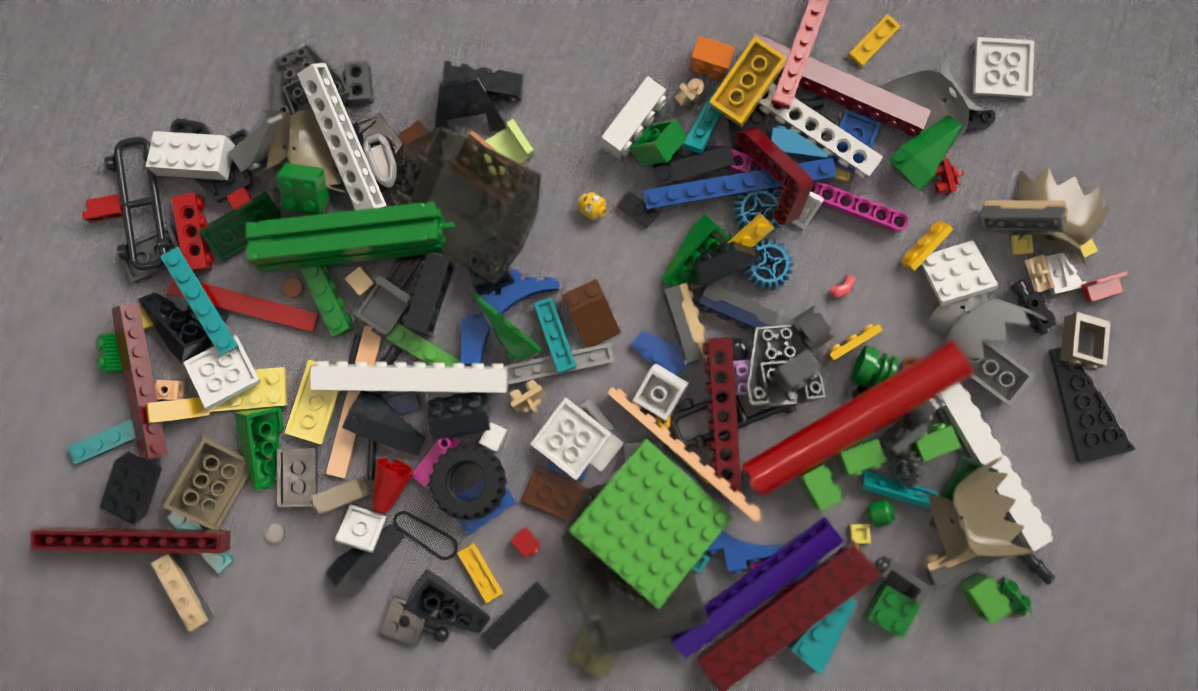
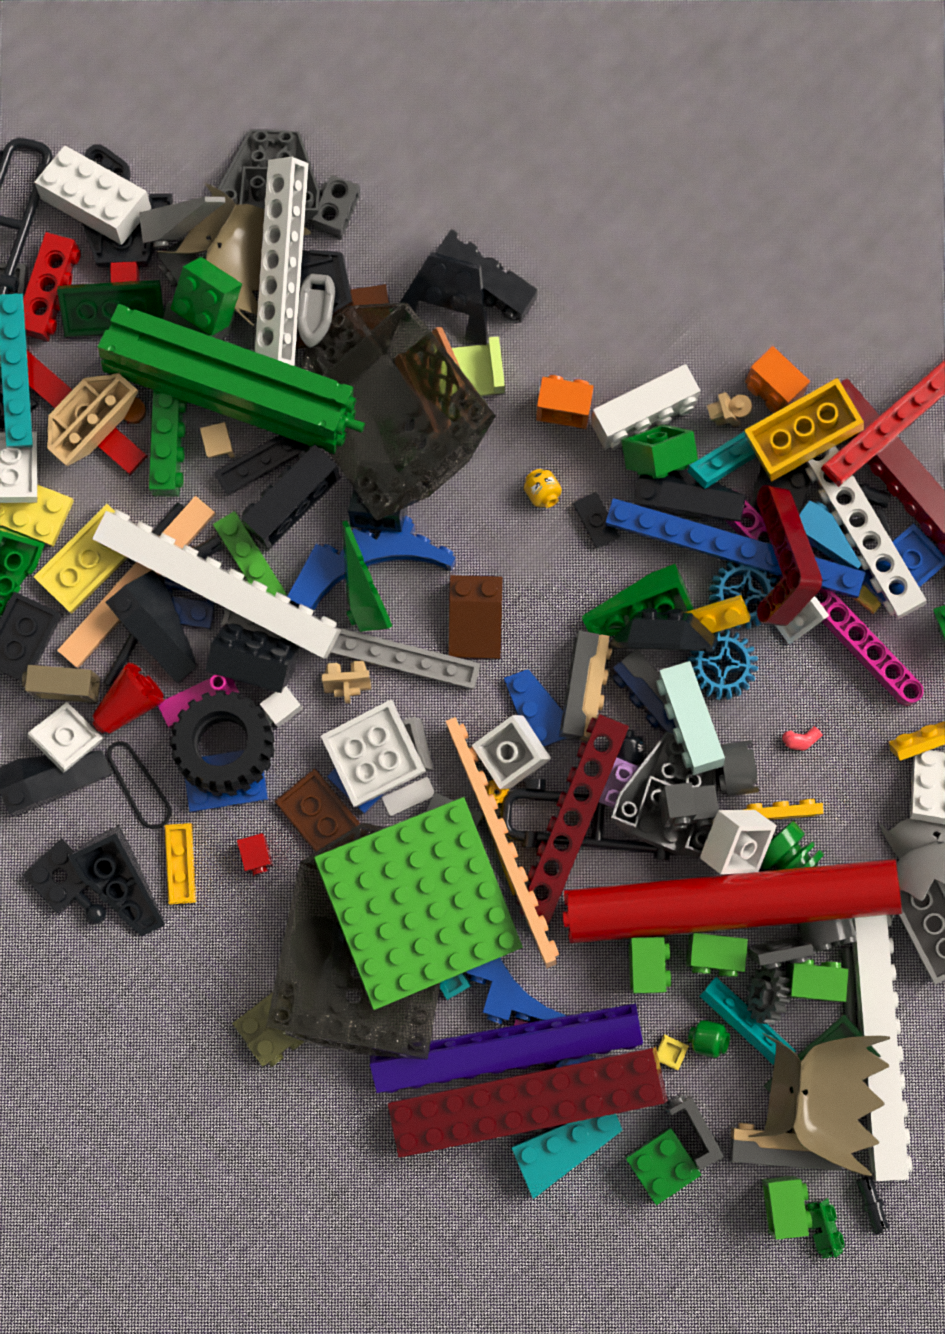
camera: 25 degrees right, 5 degrees down
(265, 308) = (88, 416): none -> tan wedge
(383, 307) = (228, 485): dark grey panel -> none
(515, 616) = (196, 937): black plate -> none
(555, 335) = (417, 621): teal plate -> none
(578, 140) = (564, 401): none -> orange brick
(768, 311) = (691, 718): none -> light aqua brick
(840, 378) = (737, 841): none -> white brick

